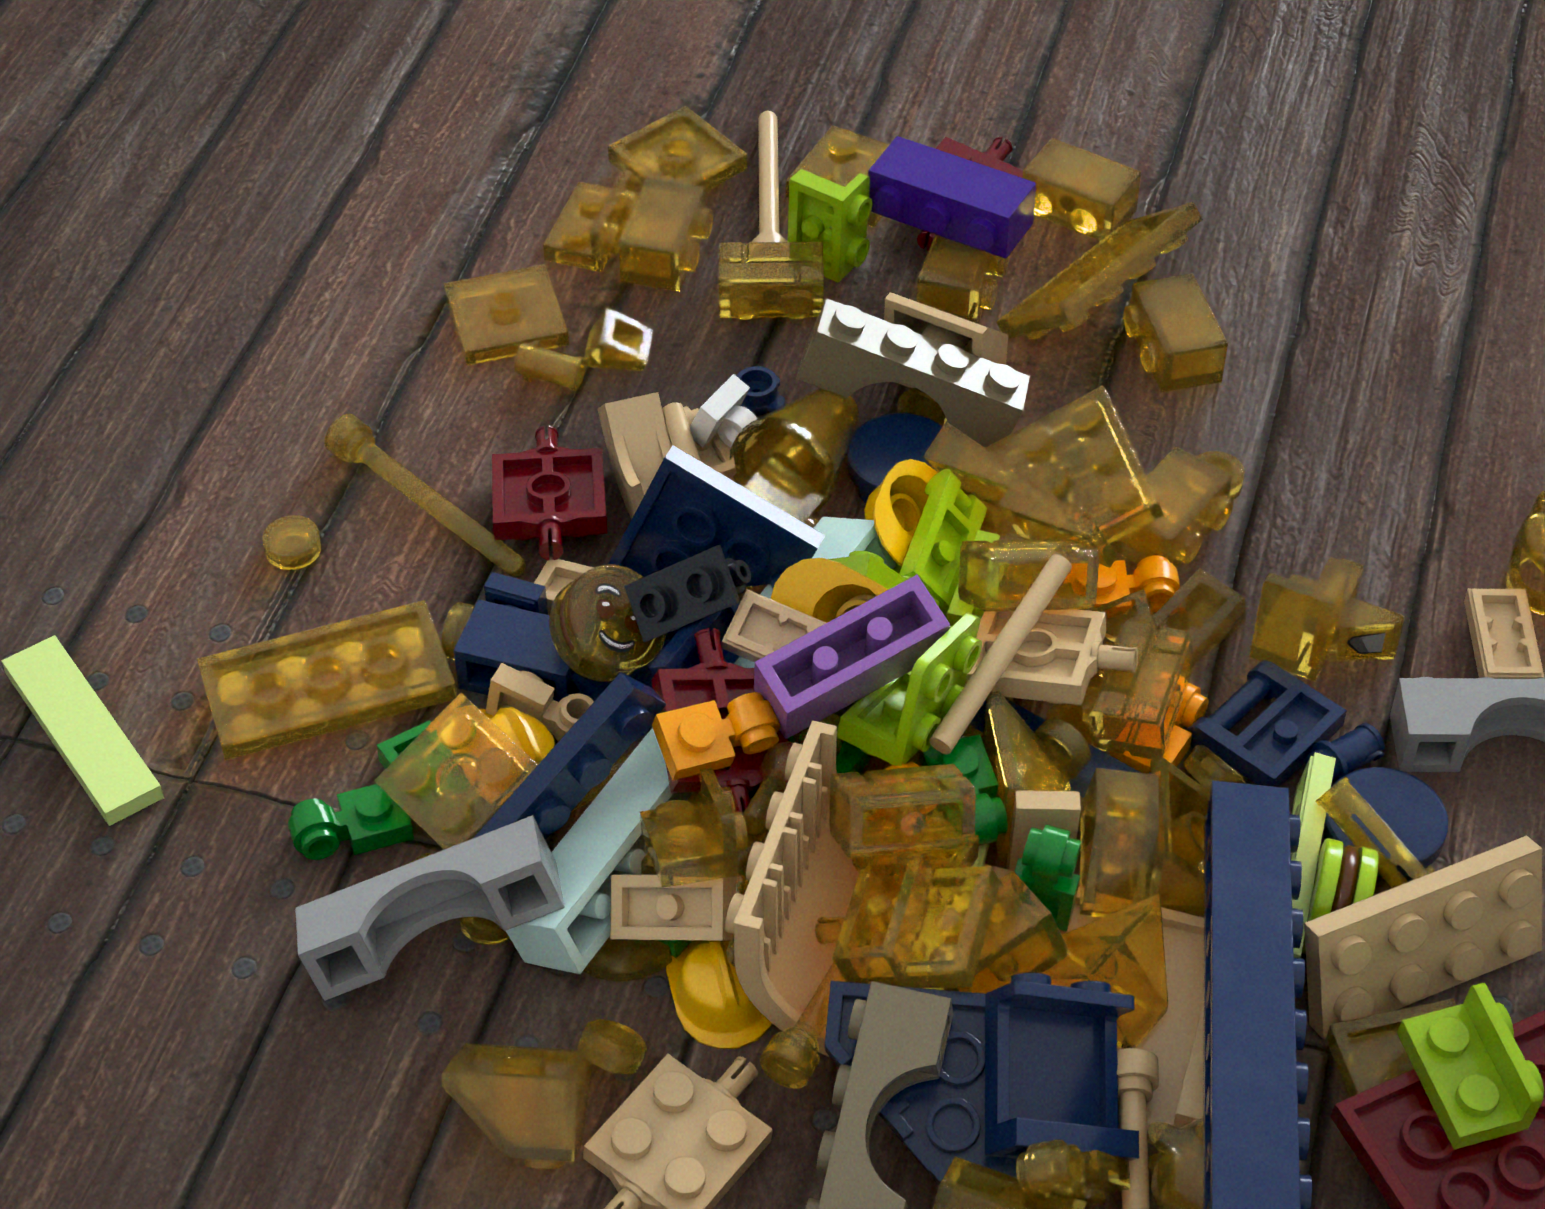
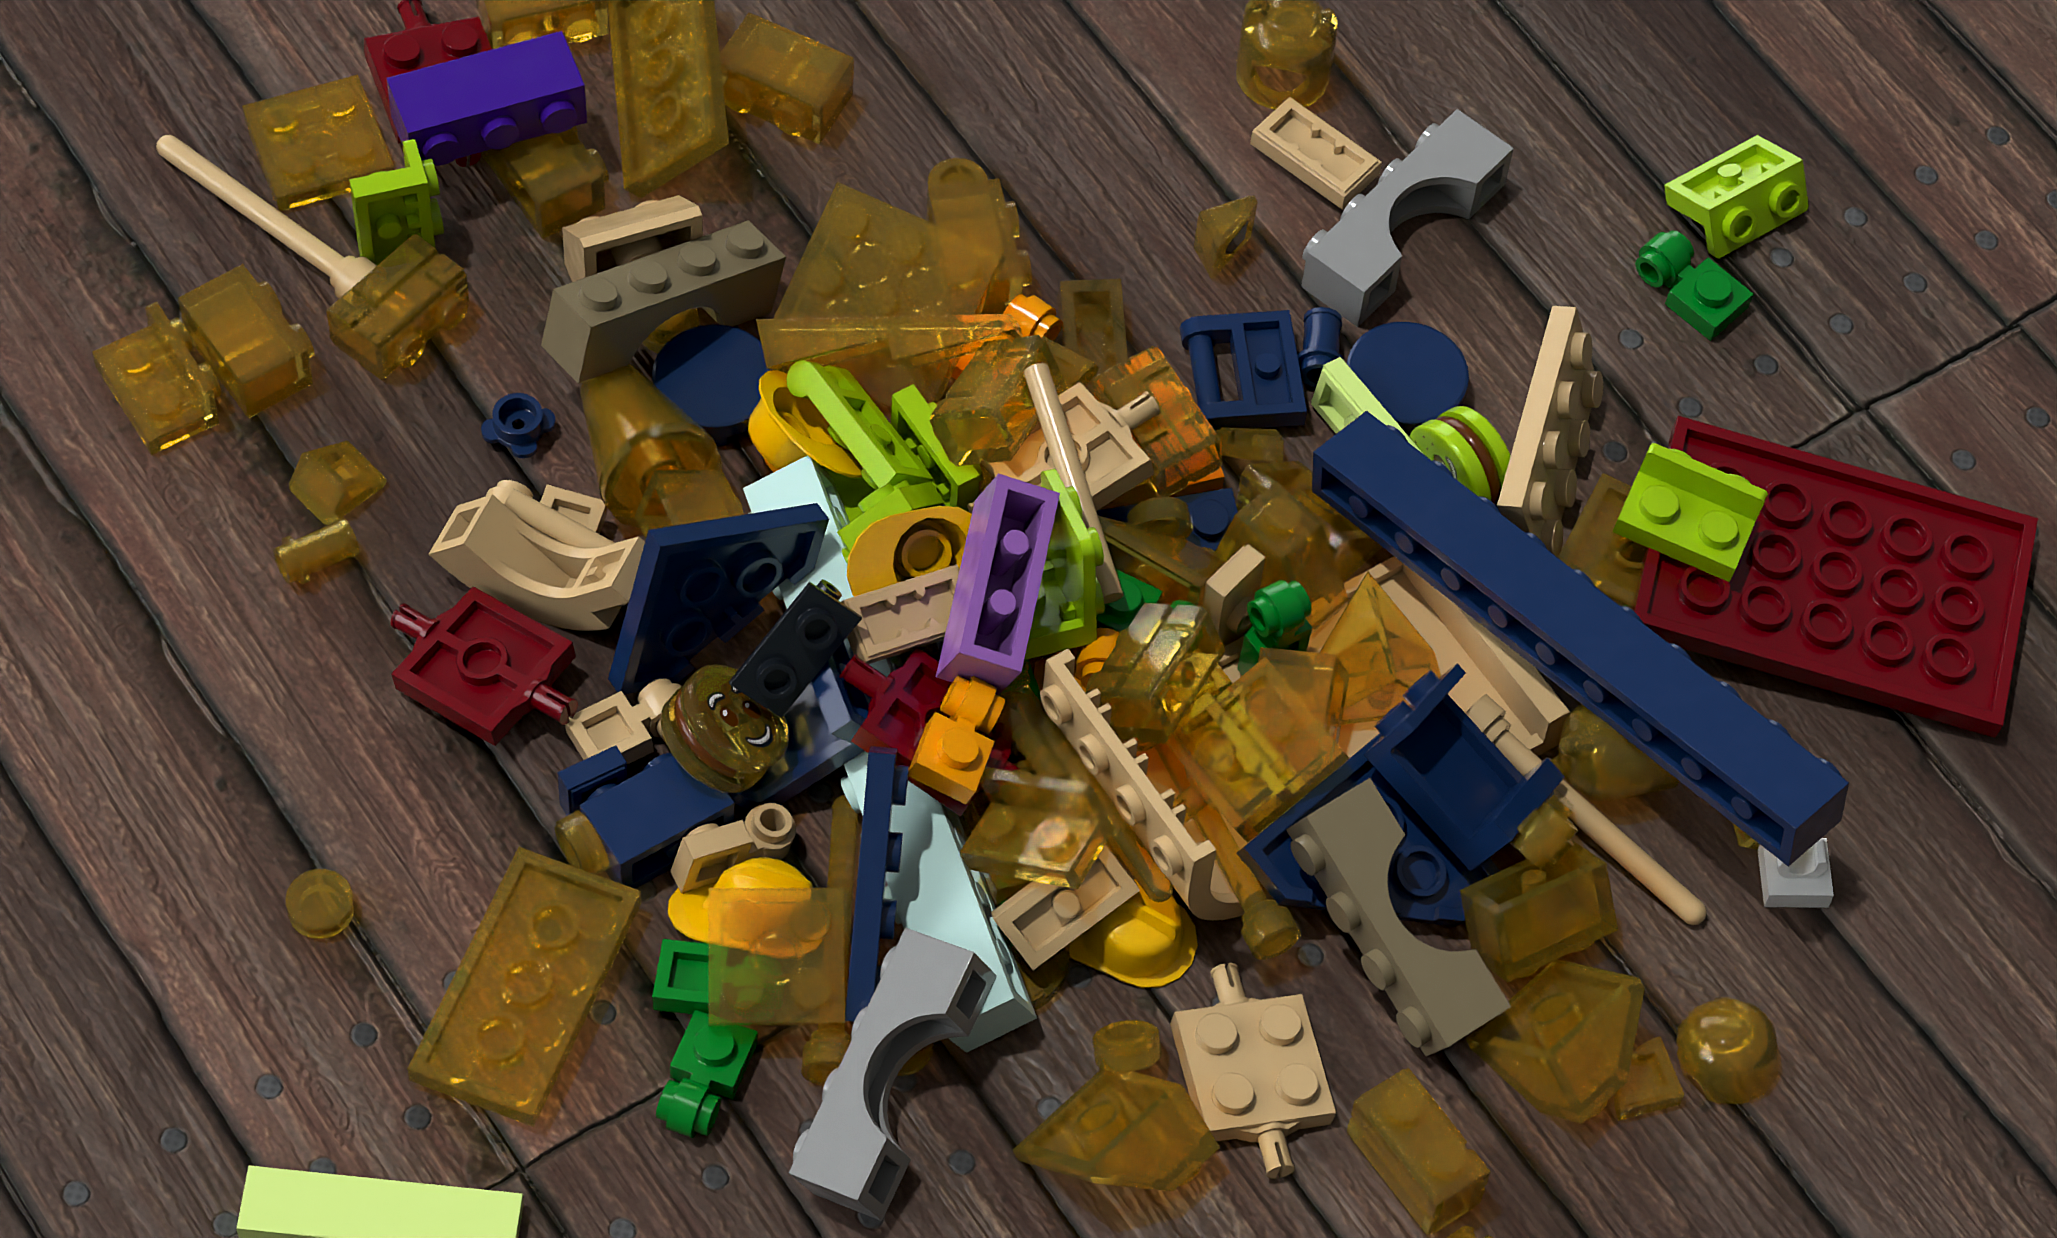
camera: 55 degrees left, 10 degrees up
(353, 442) = (252, 769): clear yellow piece -> none
(503, 311) = (201, 536): clear yellow plate -> none
(679, 150) = (146, 250): clear yellow plate -> none
(723, 414) = (556, 467): white tile -> none
(1300, 617) = (1176, 251): clear yellow panel -> none
(1342, 802) = (1398, 391): clear yellow pin -> none

